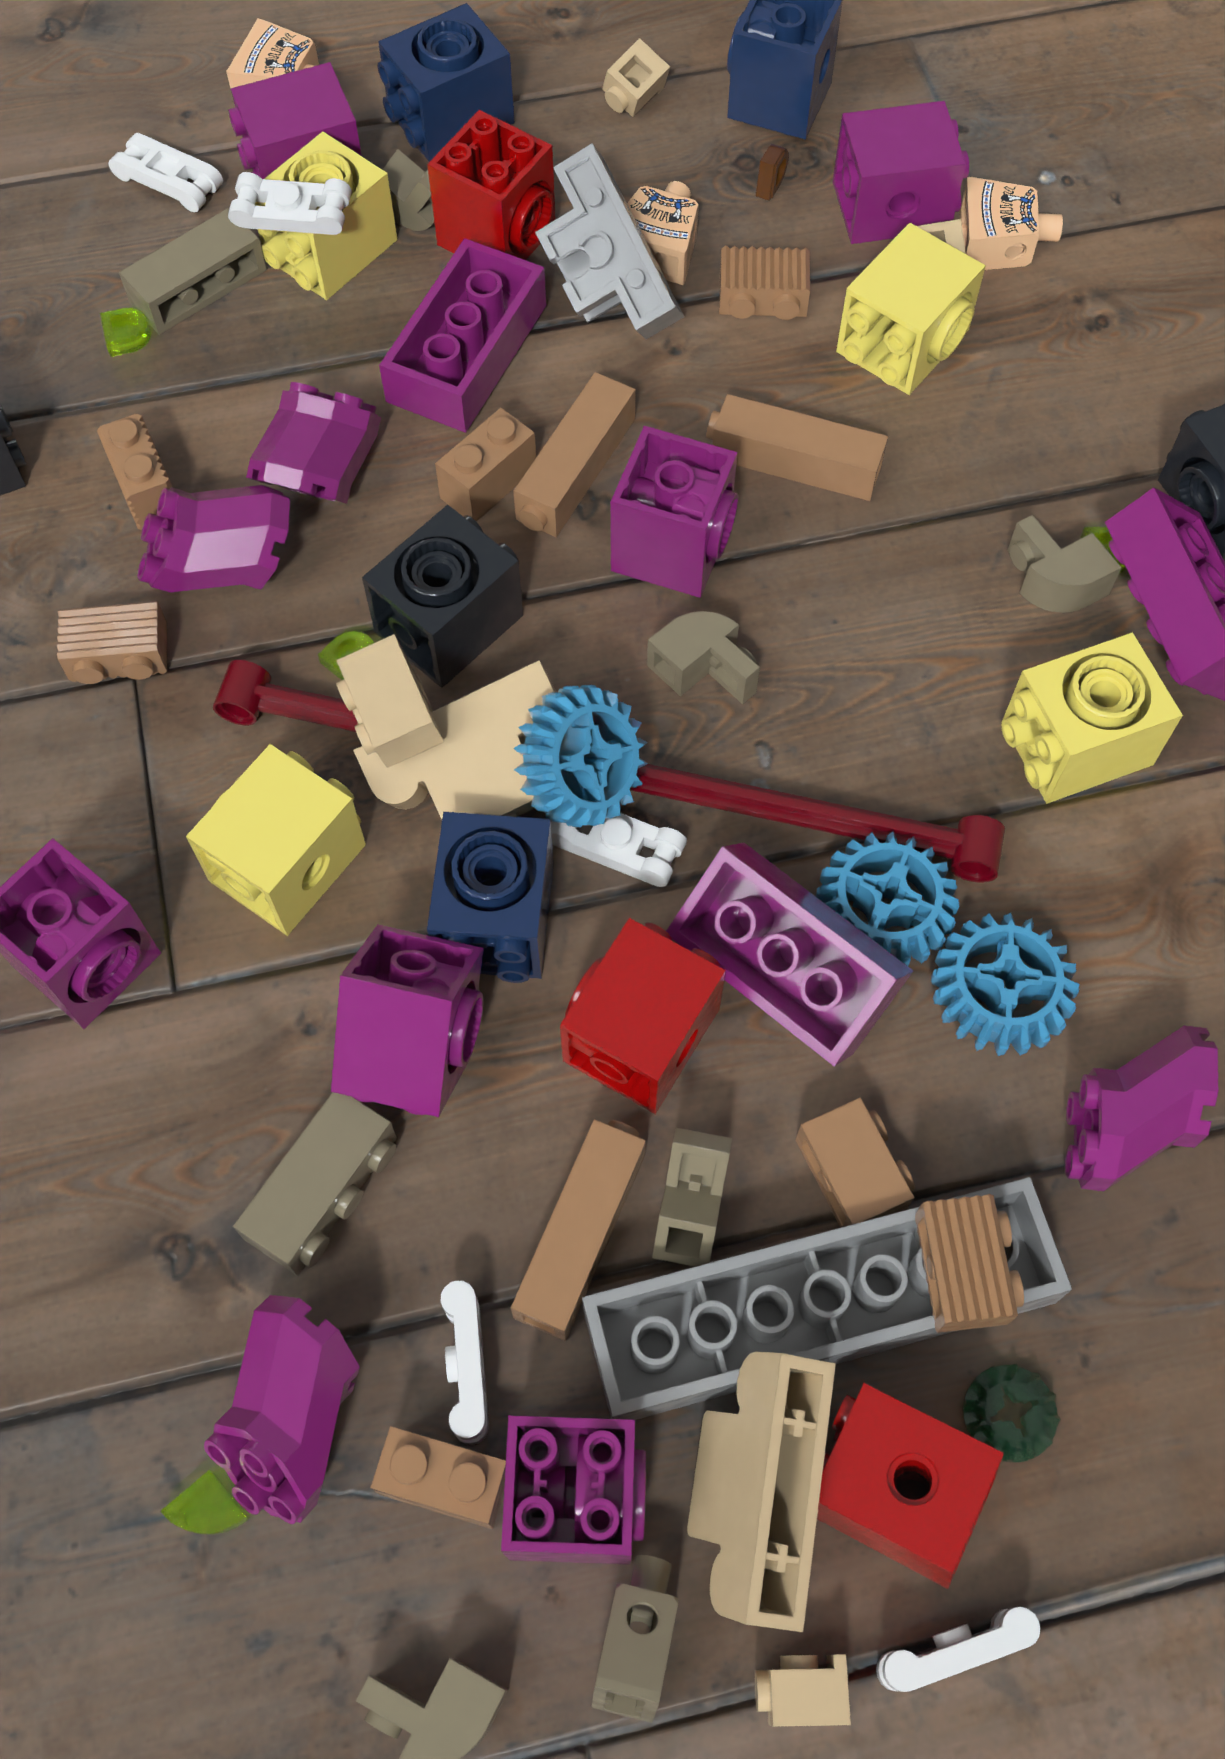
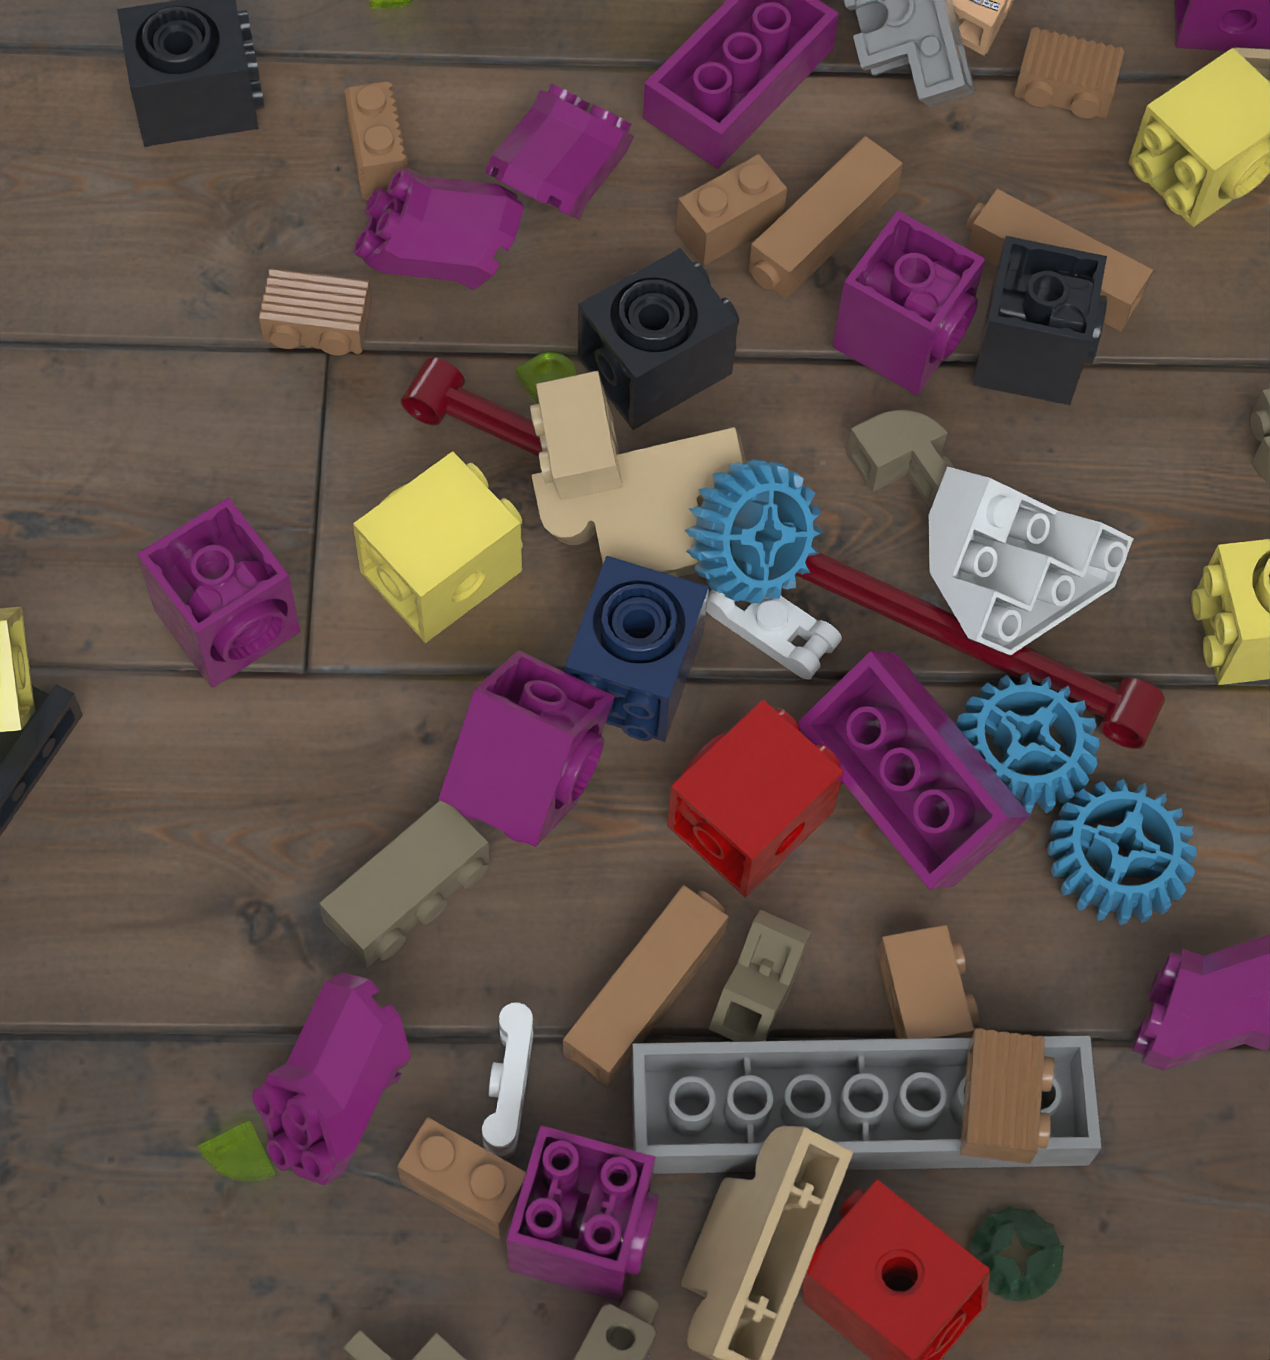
camera: 10 degrees right, 0 degrees up
(800, 501) = (1041, 320): none -> black brick
(831, 730) = (1015, 562): none -> white brick

